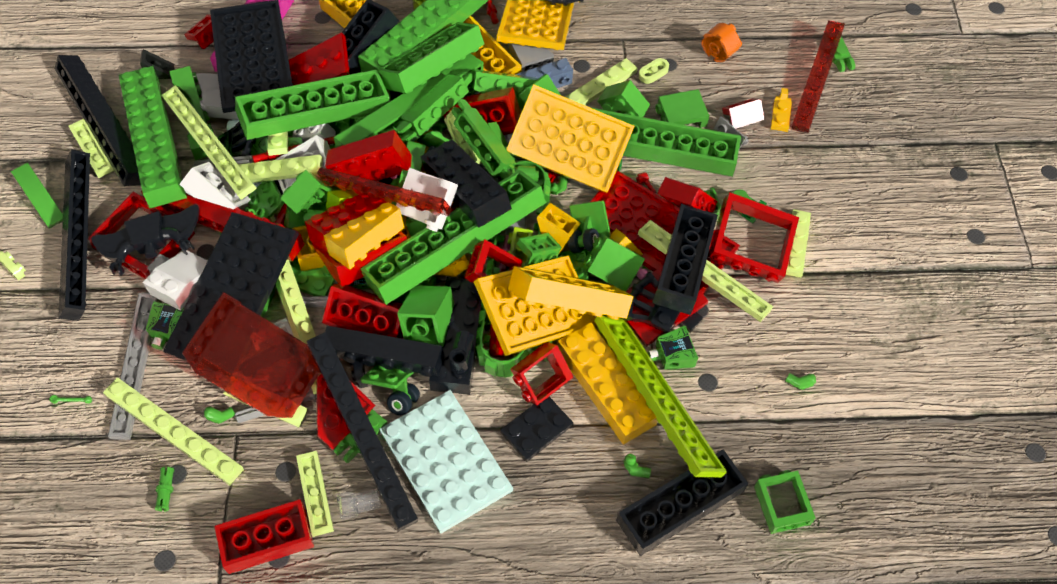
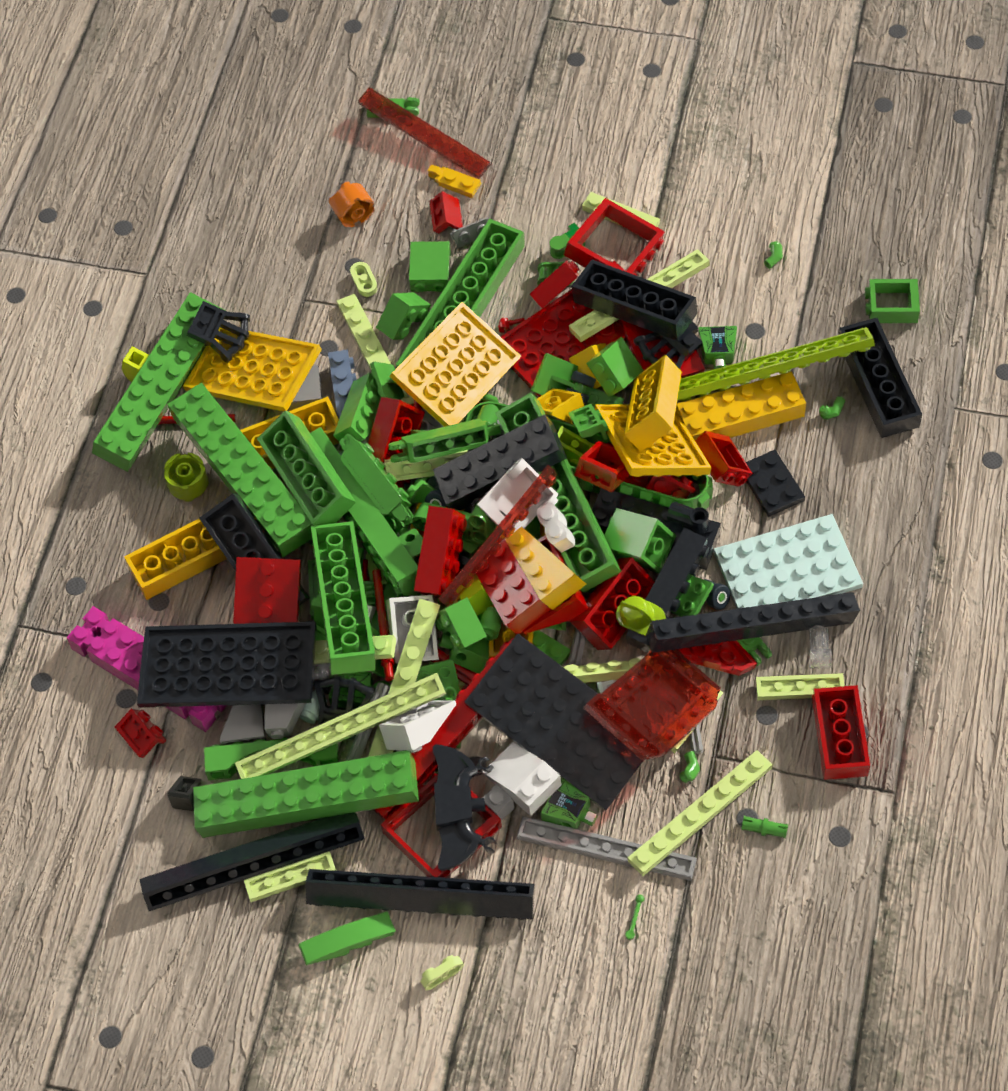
camera: 70 degrees left, 0 degrees up
(347, 331) = (638, 613): none -> lime piece
(405, 235) = (555, 527): none -> white brick

